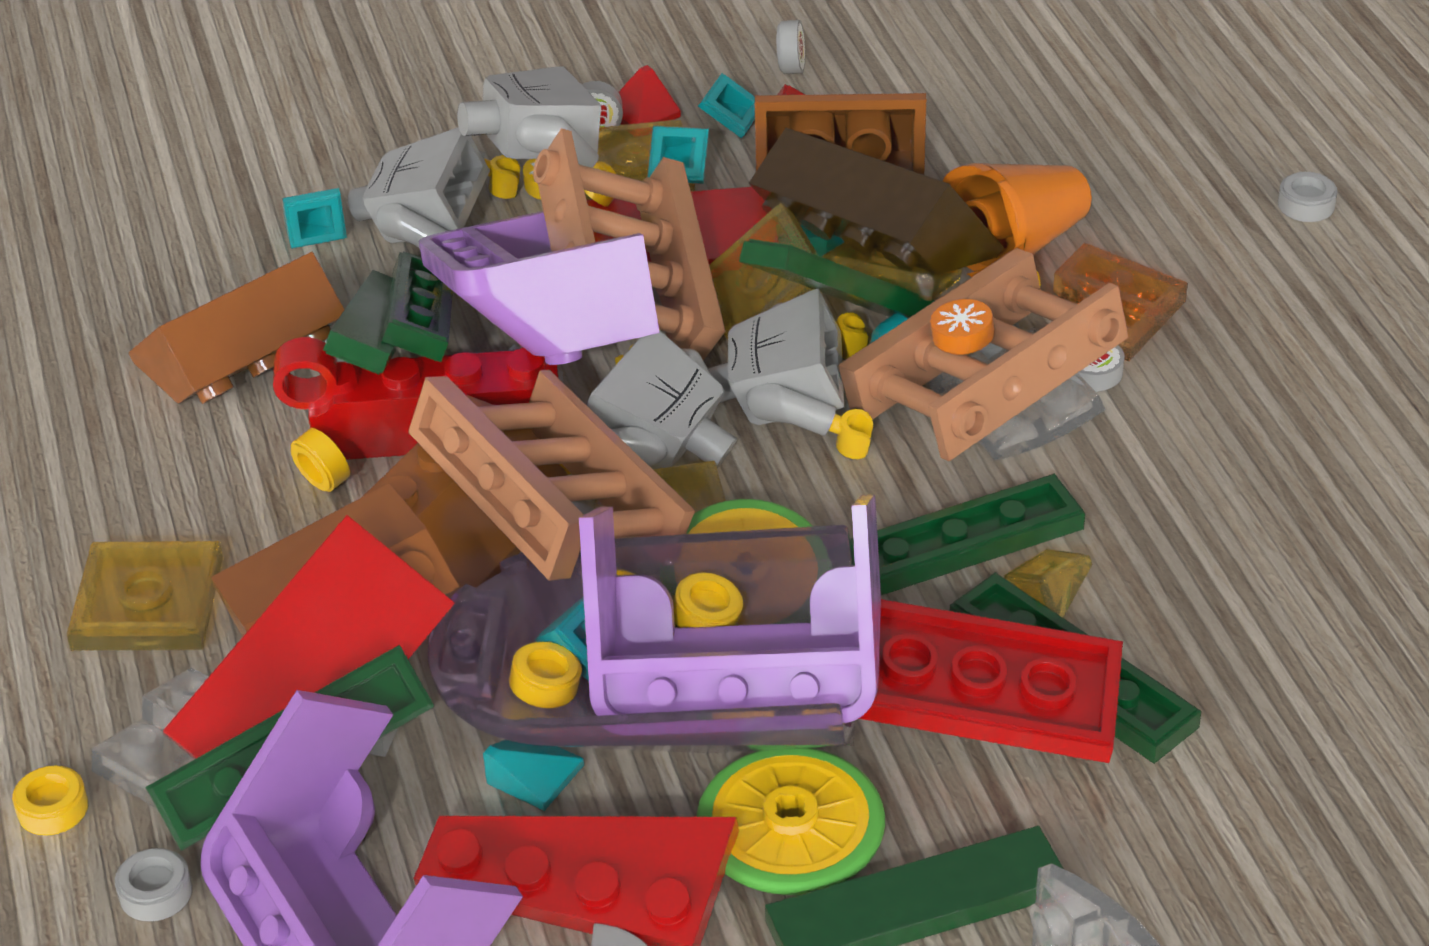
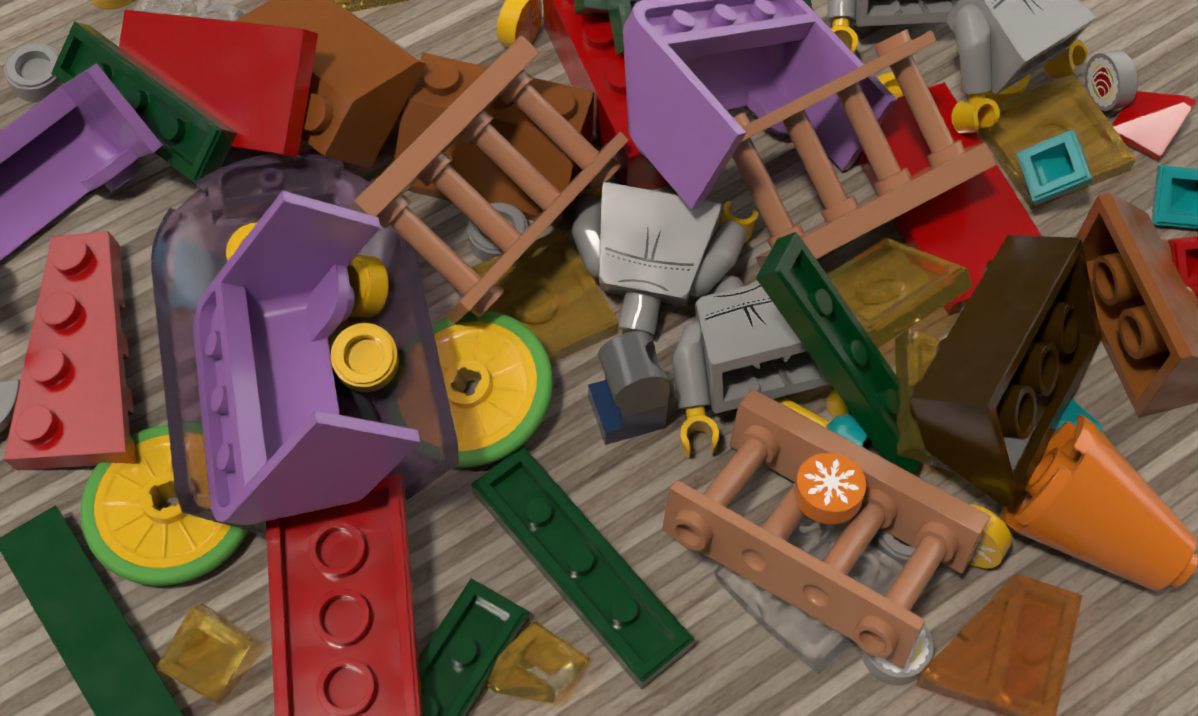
camera: 70 degrees right, 20 degrees up
(801, 449) = (634, 388): none -> dark grey leg
(964, 808) = (205, 652): none -> clear yellow slope

